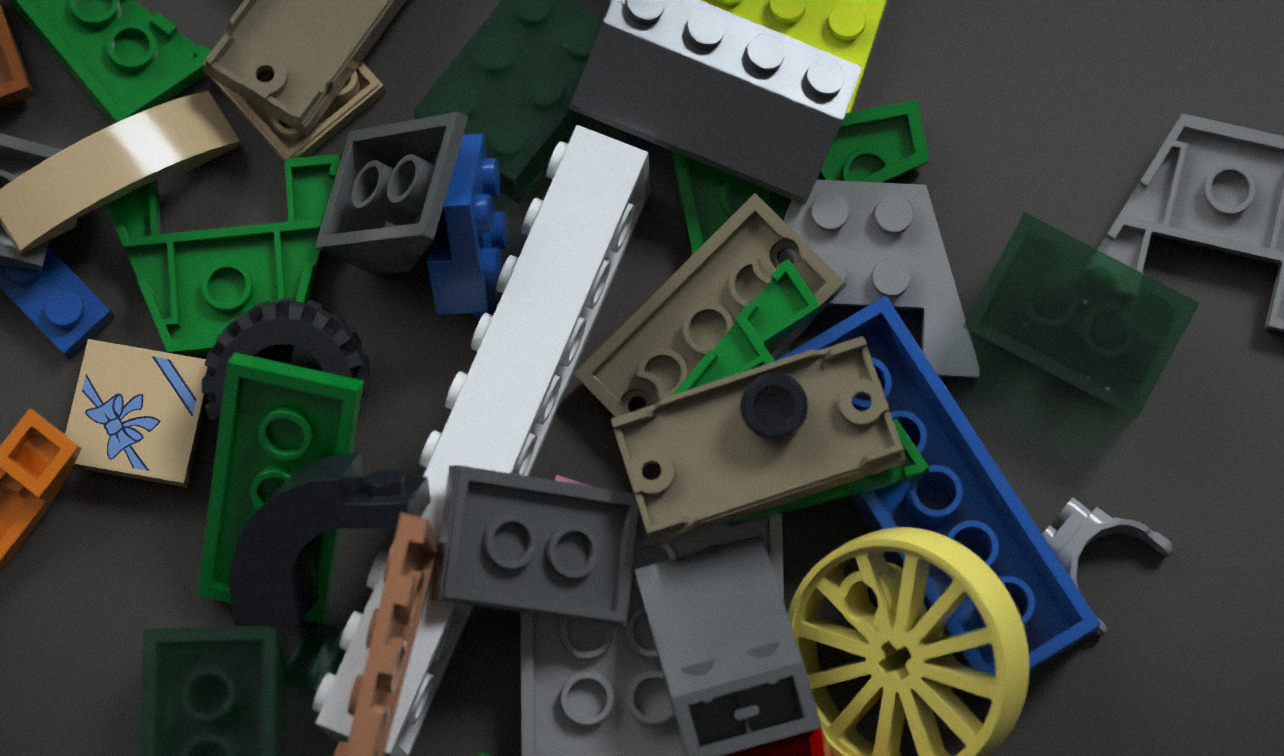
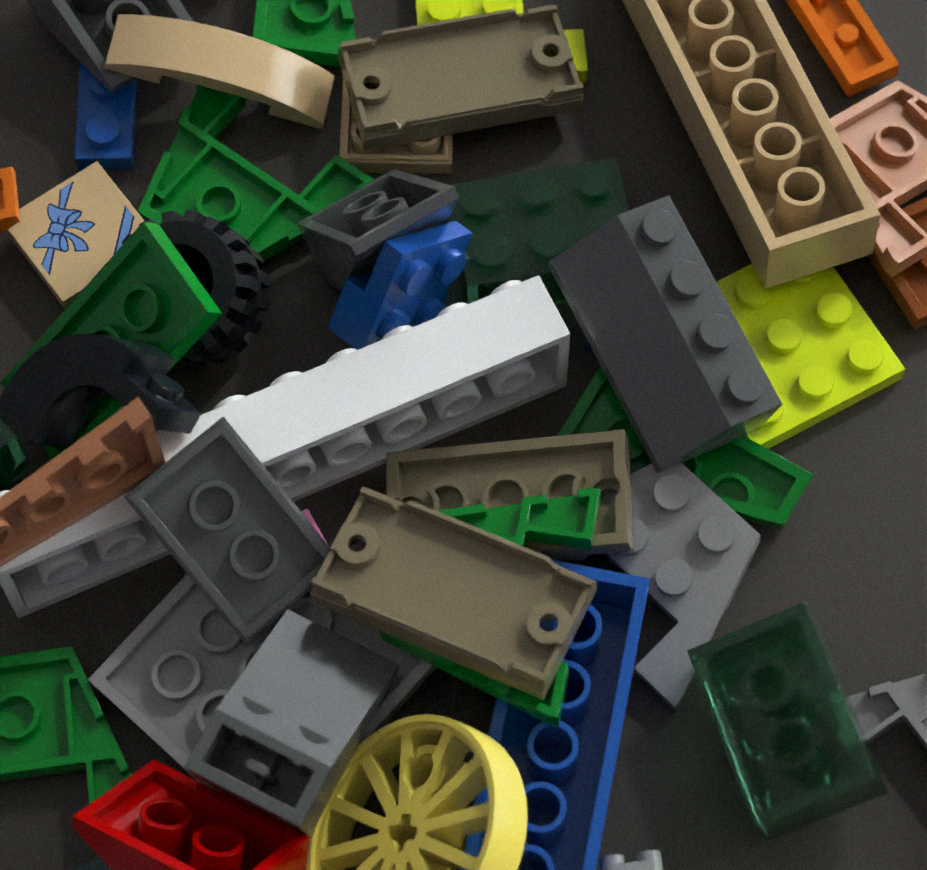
camera: 40 degrees right, 10 degrees down
(774, 405) = (482, 570): black tile -> none

